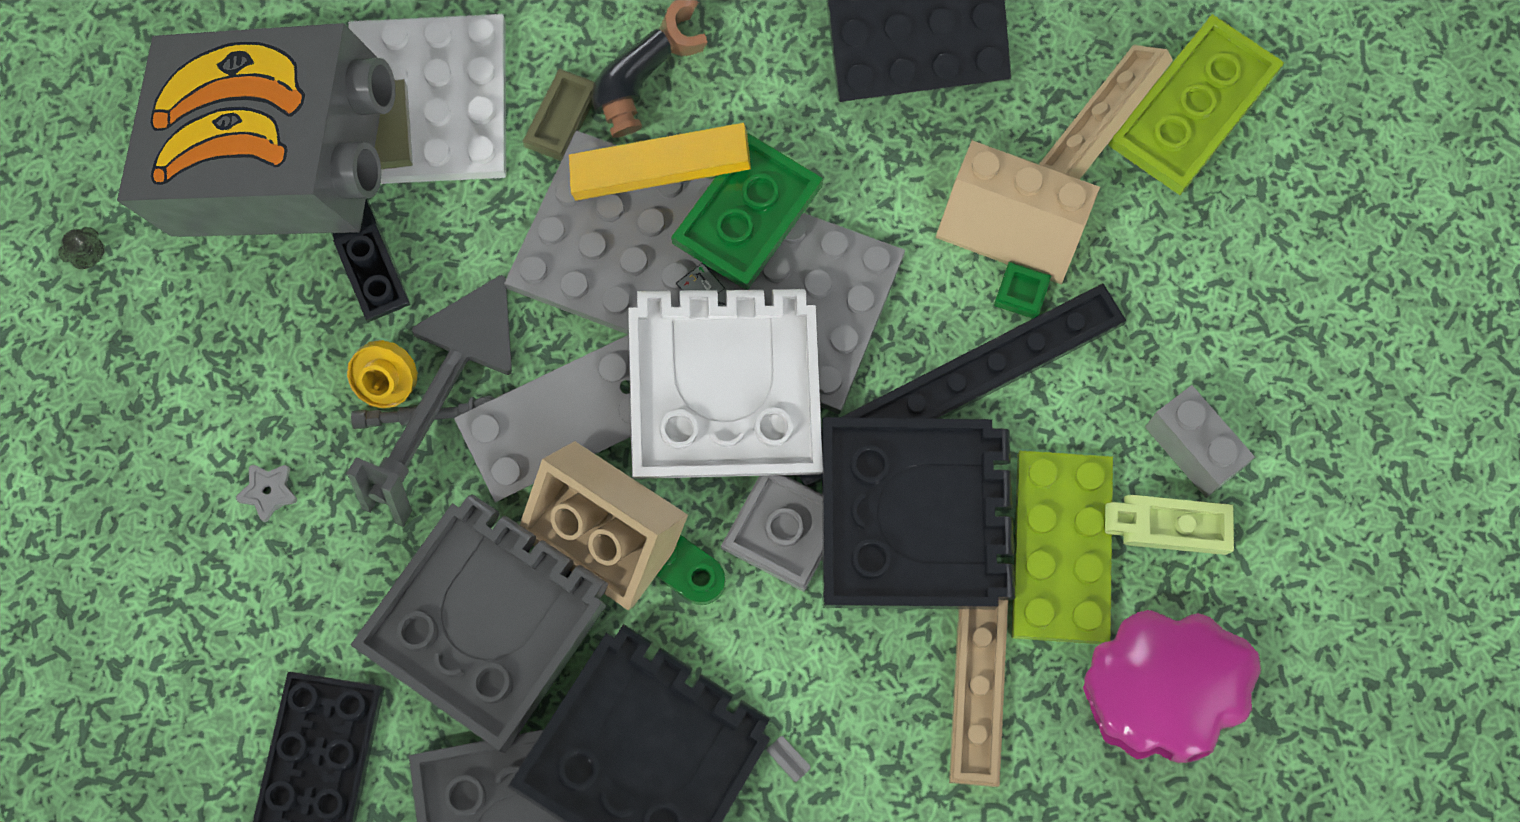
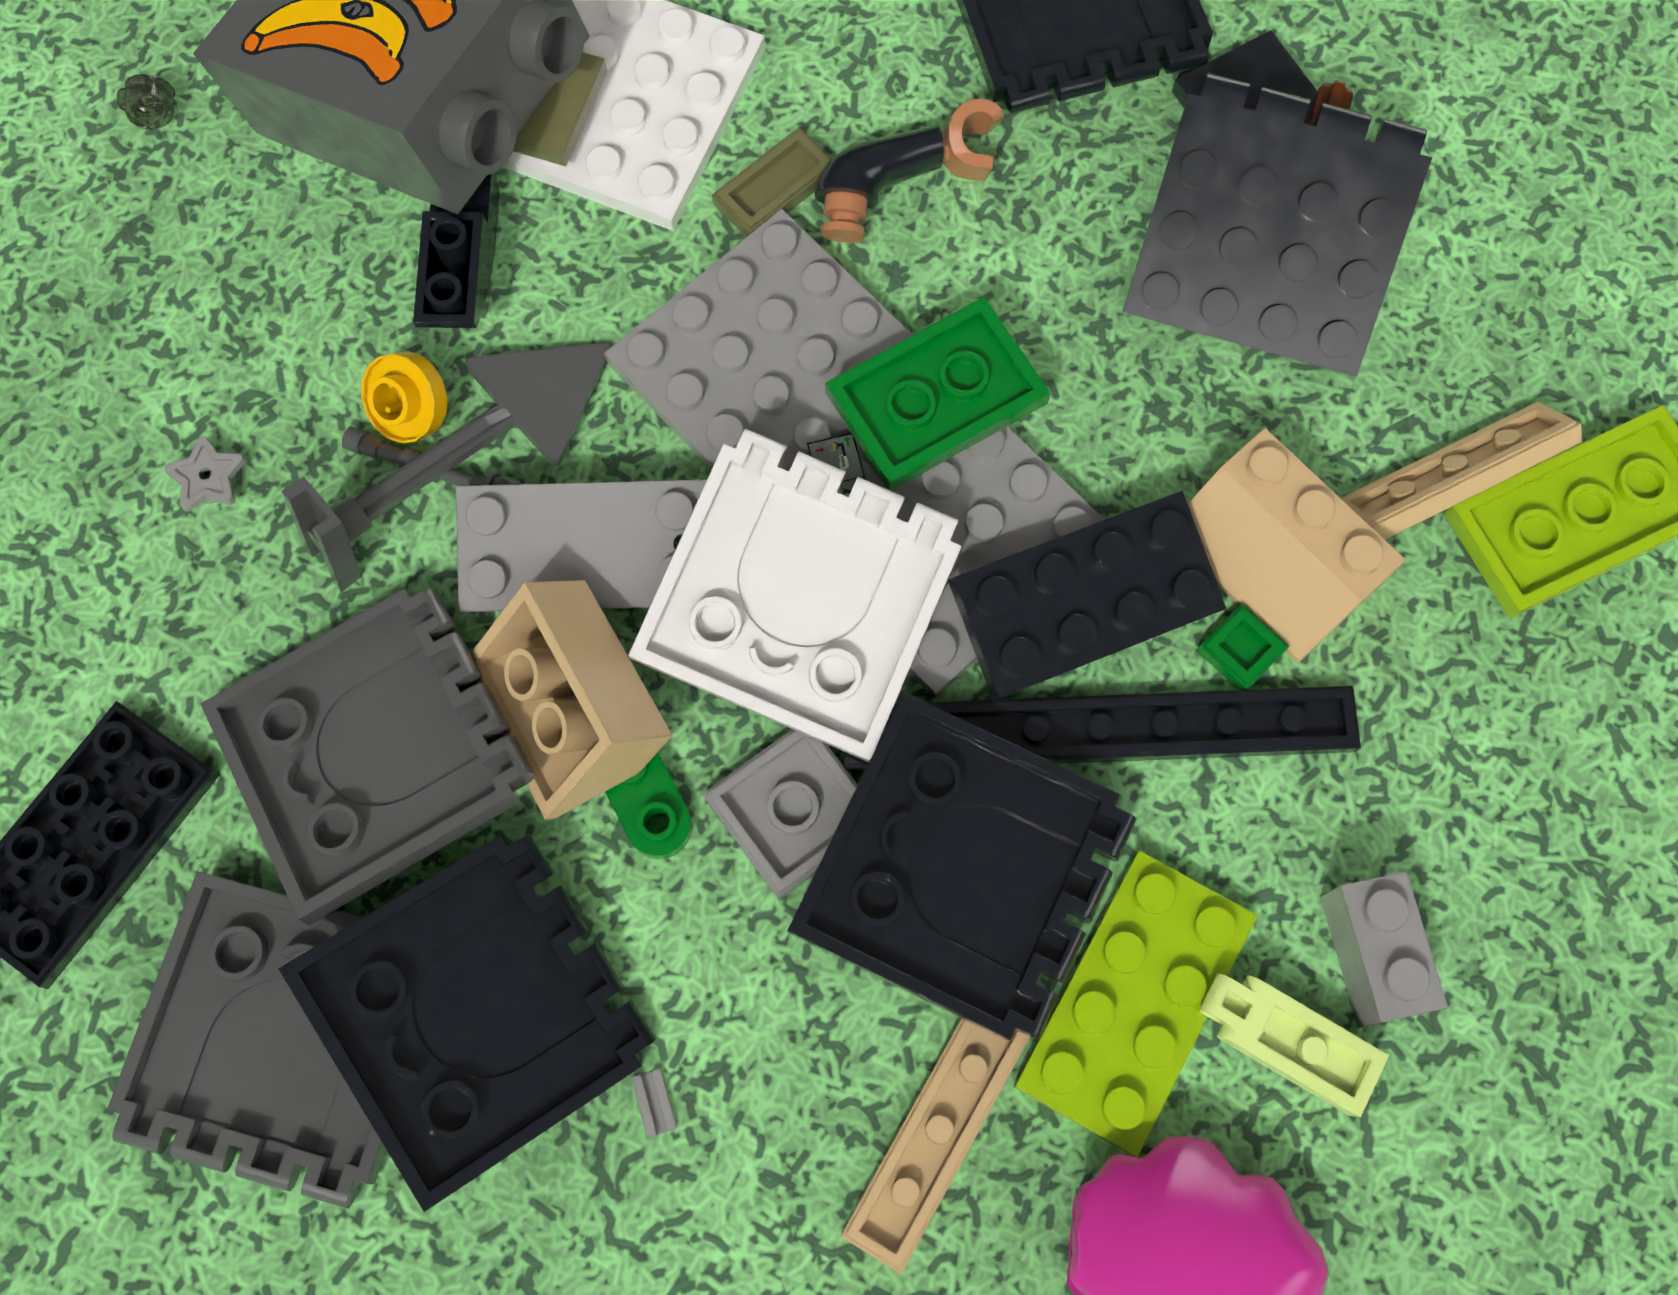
camera: 25 degrees right, 0 degrees up
(659, 161) = (858, 285): yellow tile -> none
(907, 301) = (1086, 595): none -> black plate

